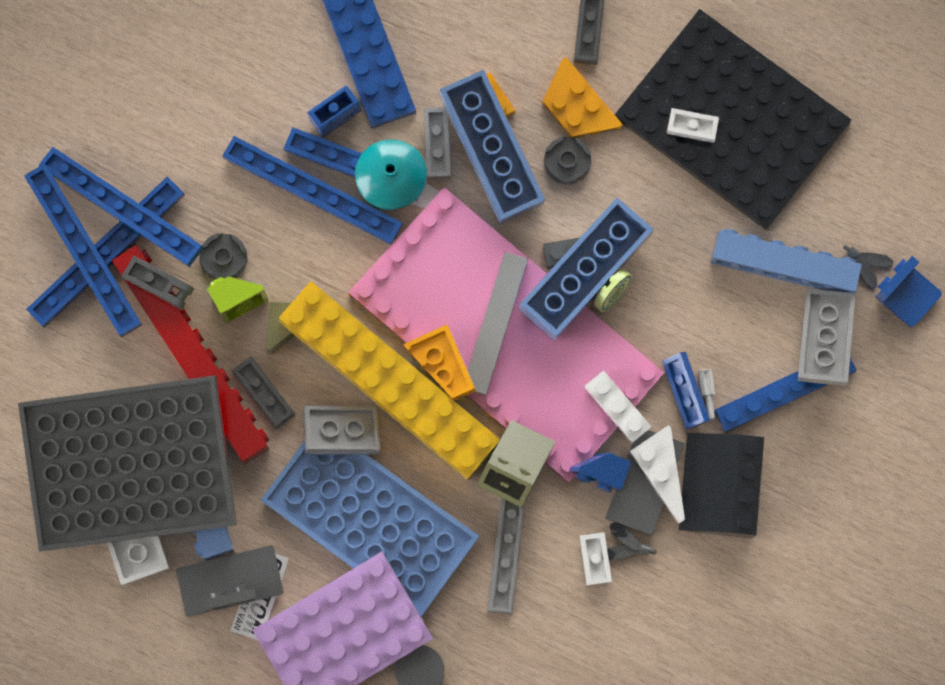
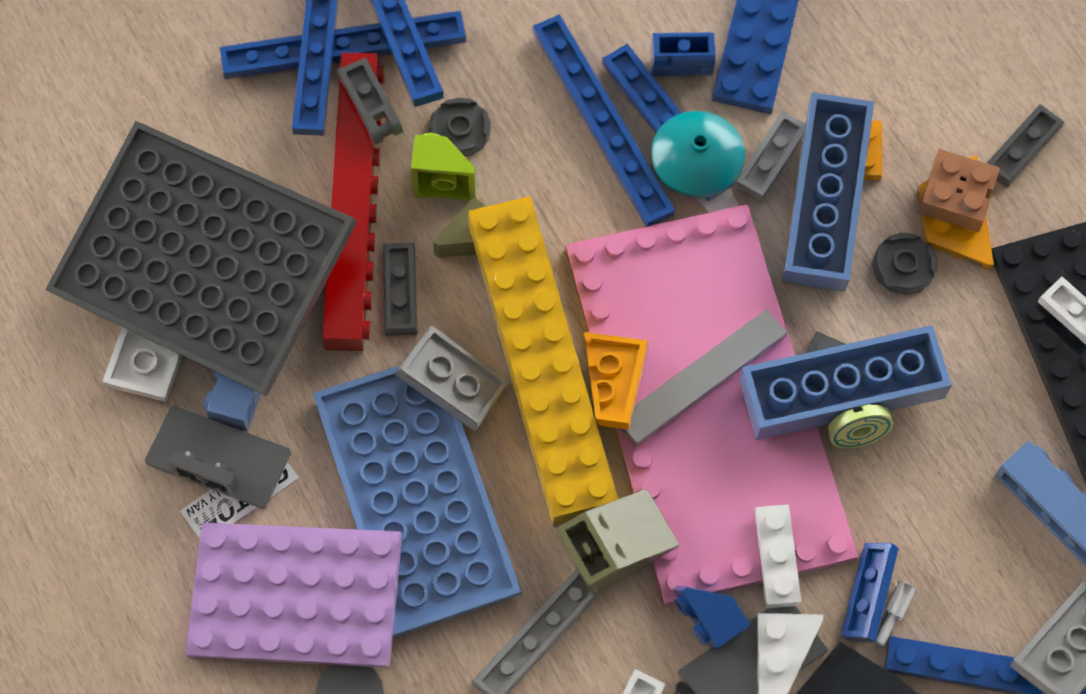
camera: 35 degrees right, 10 degrees down
(571, 91) = (959, 190): none -> nougat piece

